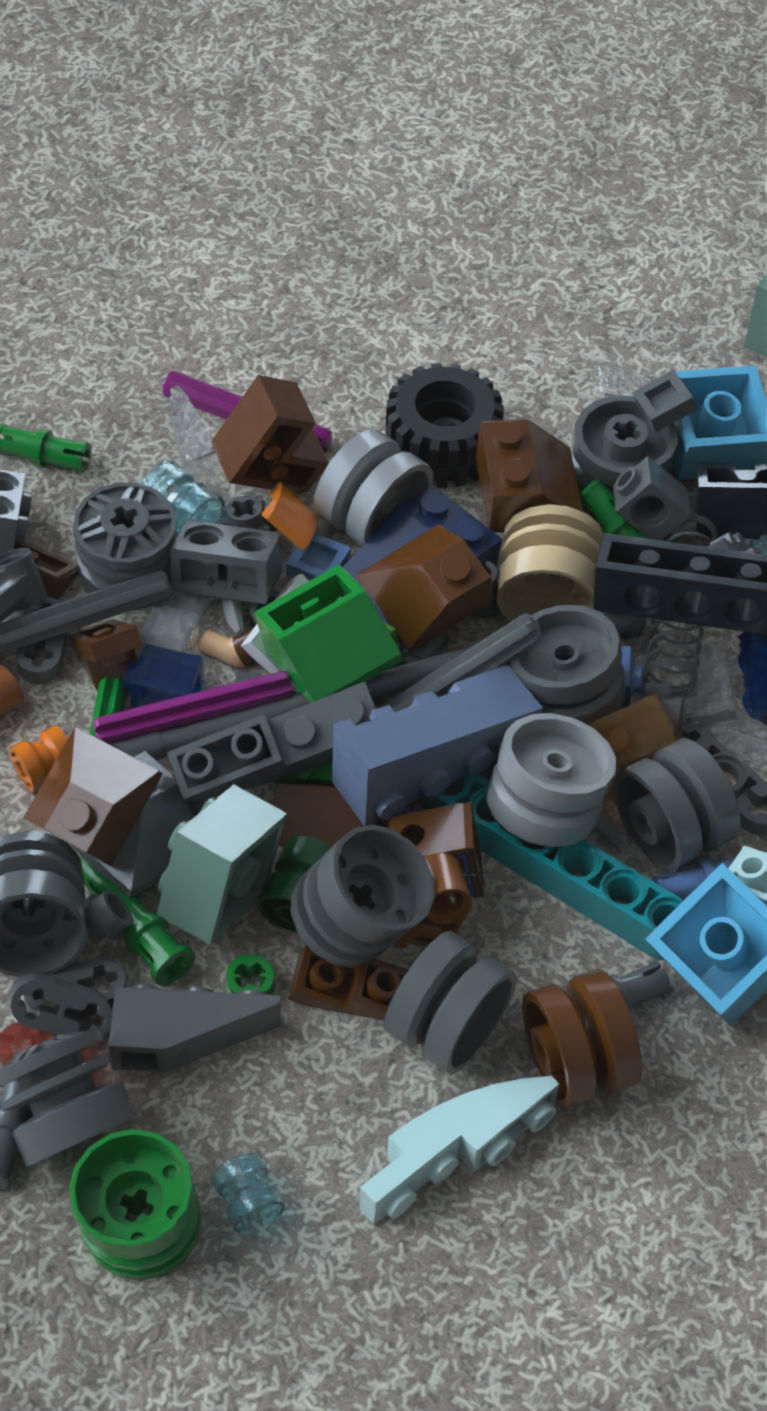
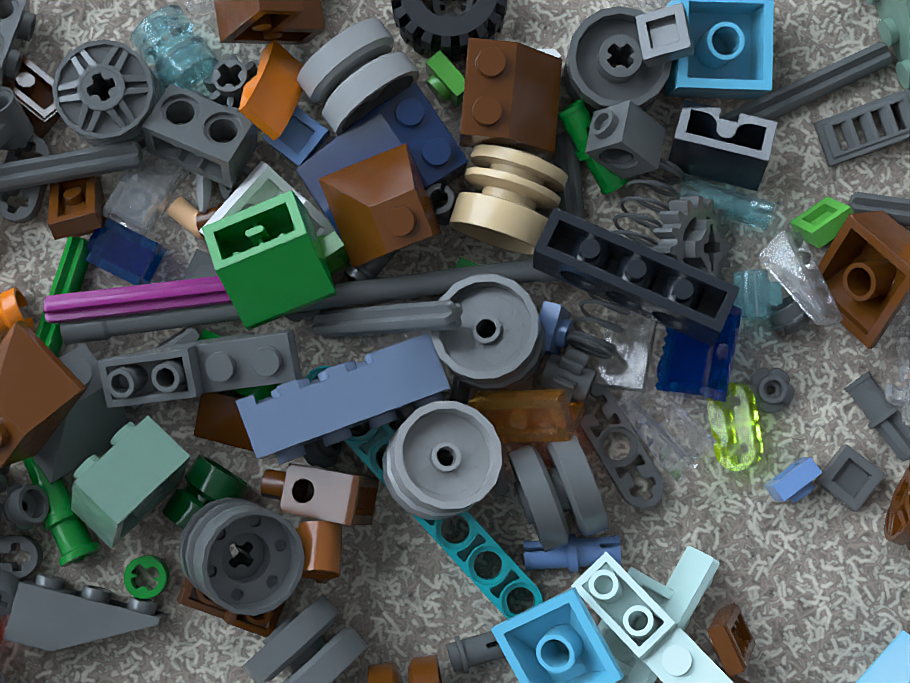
camera: 15 degrees right, 30 degrees up
(461, 488) = (445, 79): none -> bright green plate

